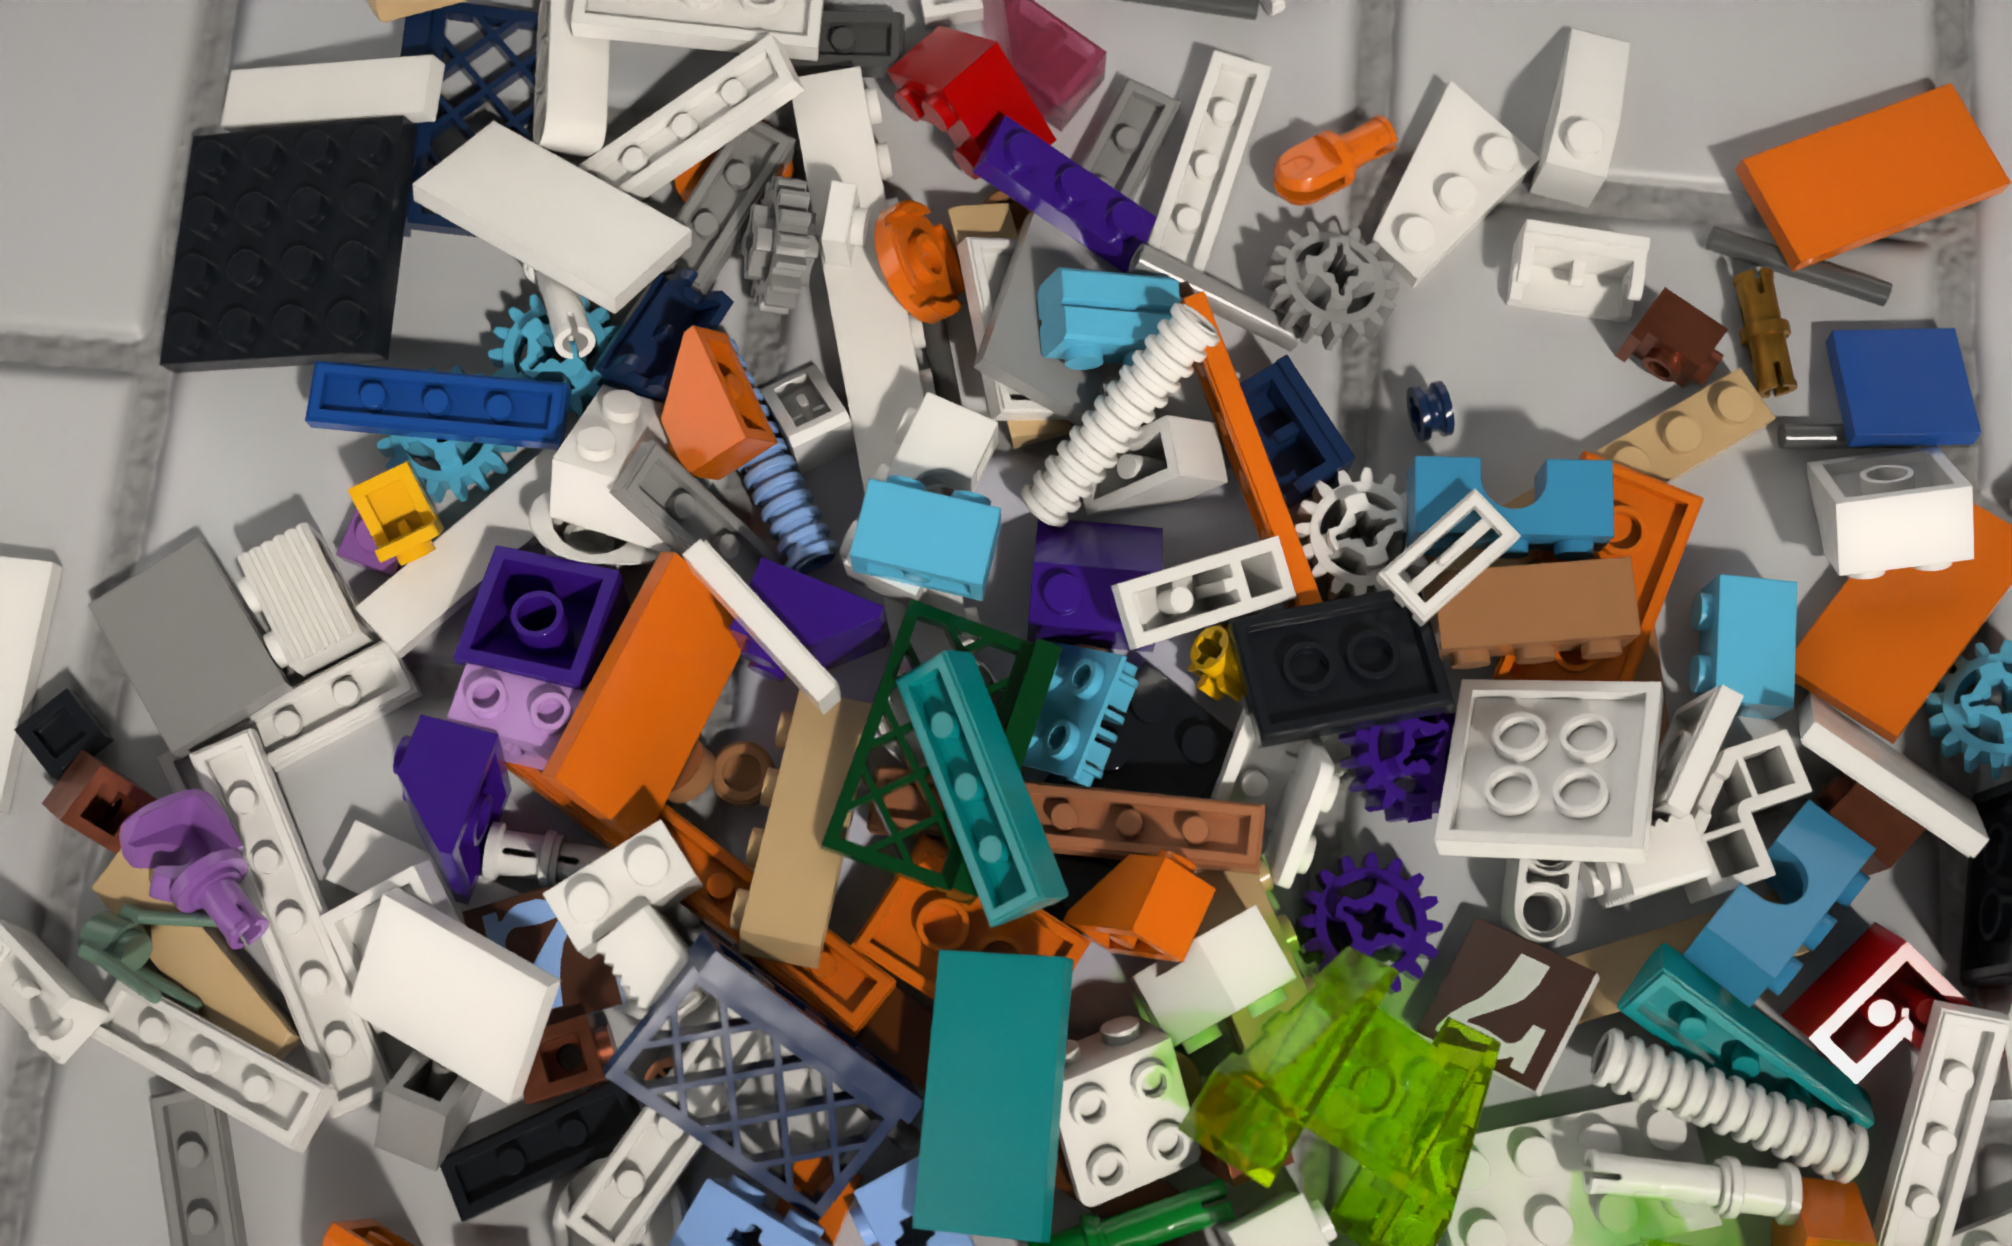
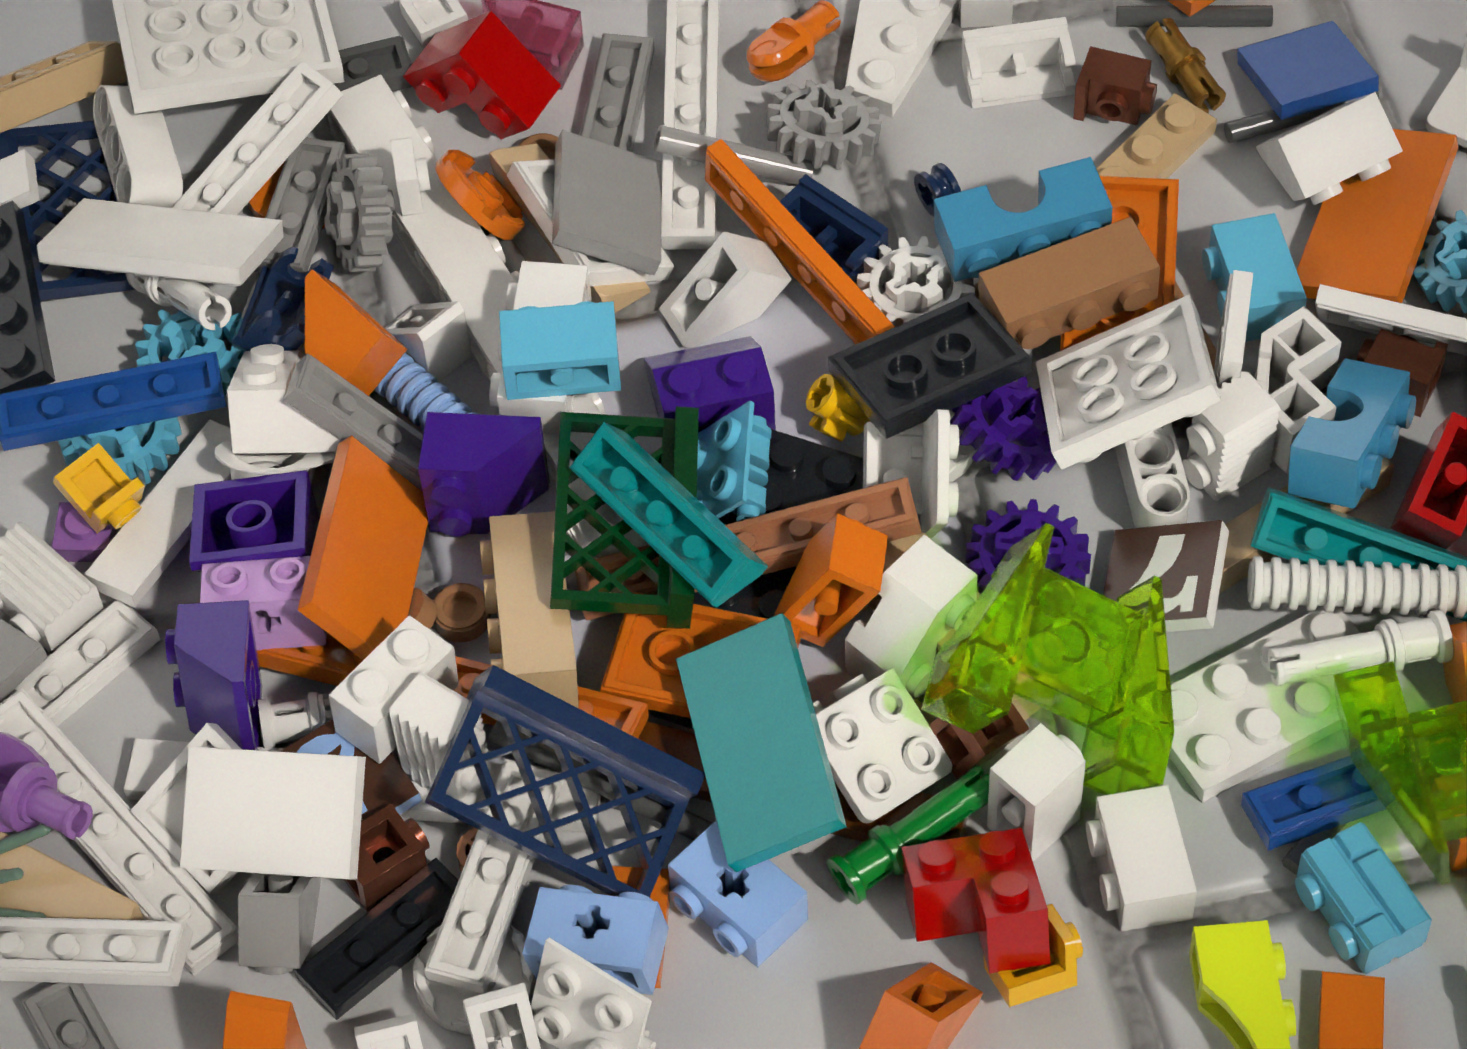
camera: 15 degrees left, 20 degrees down
(763, 625) = (447, 447): white tile -> none
(1064, 193) = (582, 113): dark purple plate -> none
(1101, 315) = (651, 181): medium azure brick -> none
(1119, 415) = (684, 245): white piece -> none
(1203, 592) = (797, 345): white slope -> none
(1408, 593) = (967, 288): white tile -> none

